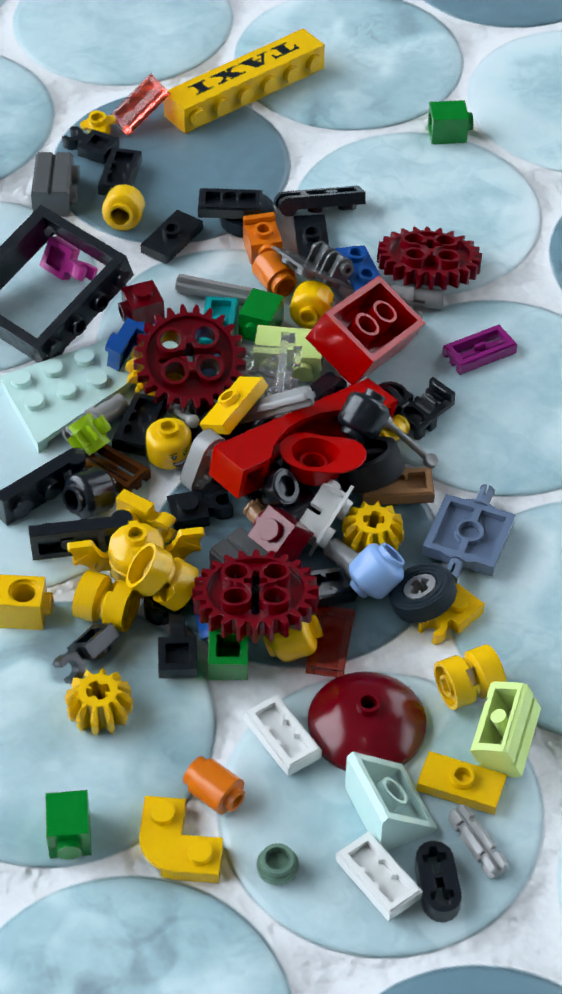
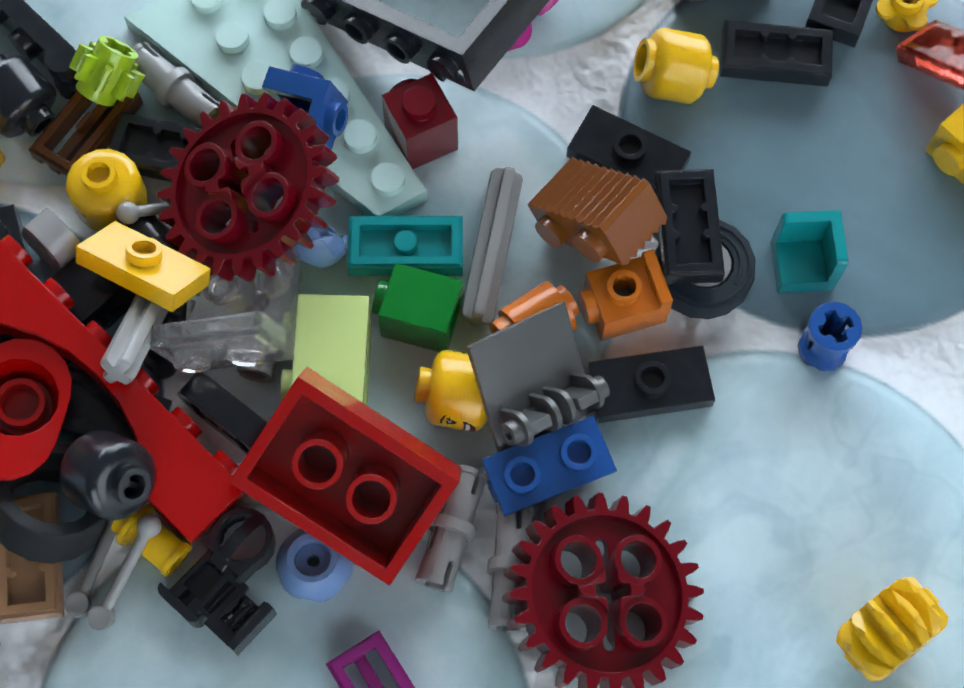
camera: 85 degrees right, 20 degrees up
(217, 235) = (597, 212): none -> dark orange brick
(246, 167) = (809, 251): none -> teal panel
(294, 169) = (832, 320): none -> blue bush
(318, 199) = (752, 388): black plate -> none
(405, 370) = (309, 582): none -> medium blue plate
(451, 160) = (891, 628): none -> yellow gear

